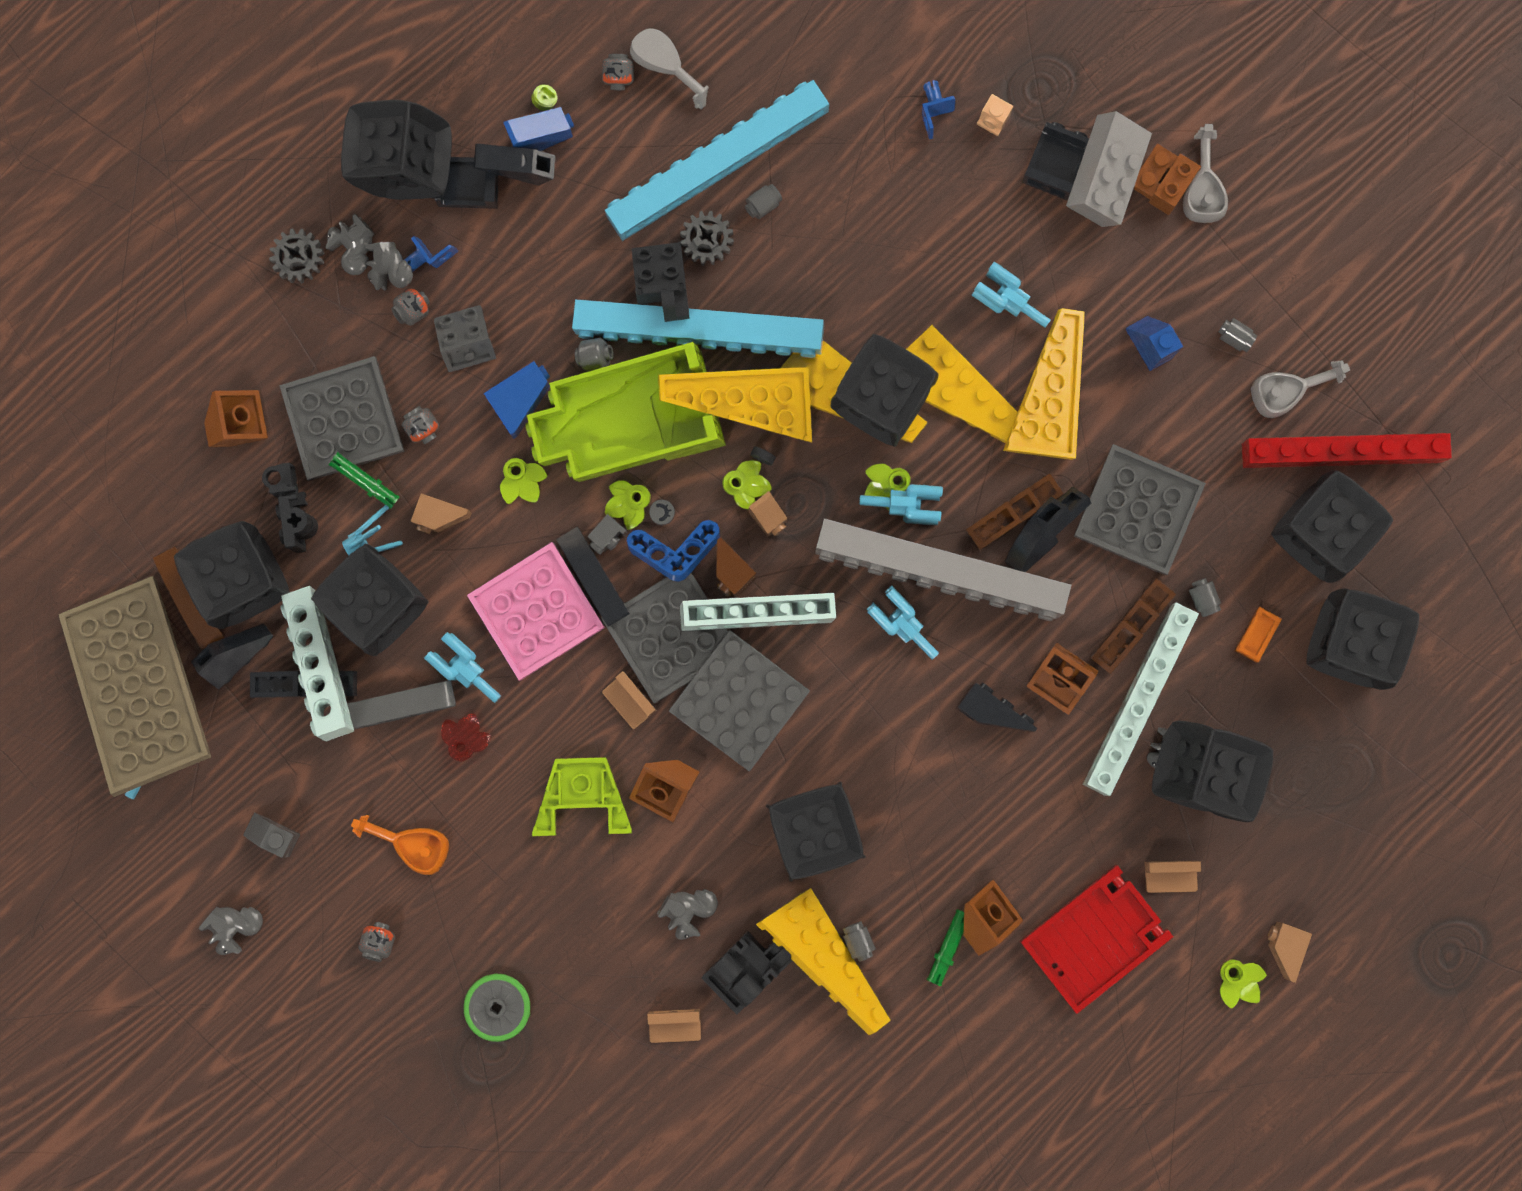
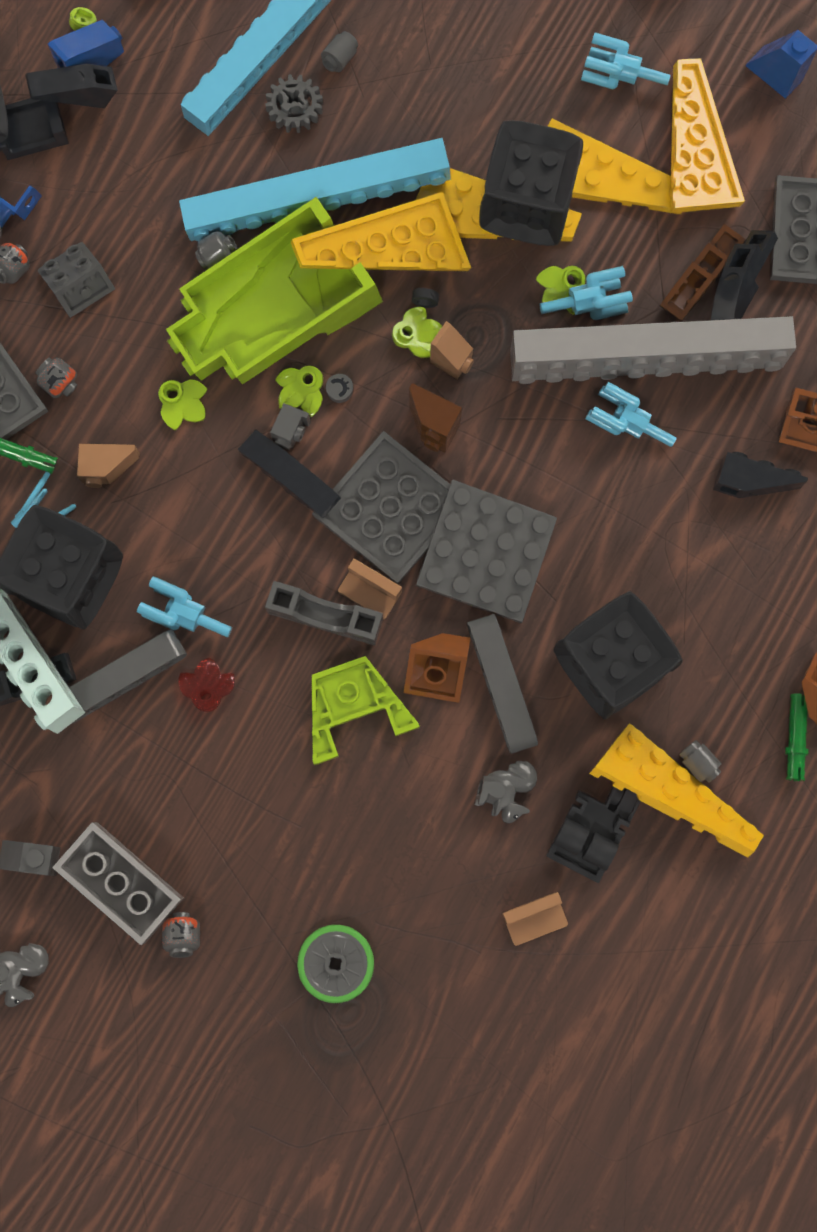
camera: 20 degrees left, 5 degrees down
(338, 882) = (118, 883): none -> light grey brick
(420, 848) = (196, 819): orange piece -> none
(519, 396) = (149, 316): blue slope -> none
(536, 611) = (240, 529): bright pink plate -> none
(582, 710) = (340, 619): none -> dark grey arch
(661, 279) = (261, 151): black plate -> none
(671, 557) = (369, 426): blue beam -> none
(714, 819) = (502, 684): none -> dark grey beam
(757, 611) = (475, 451): light aqua brick -> none

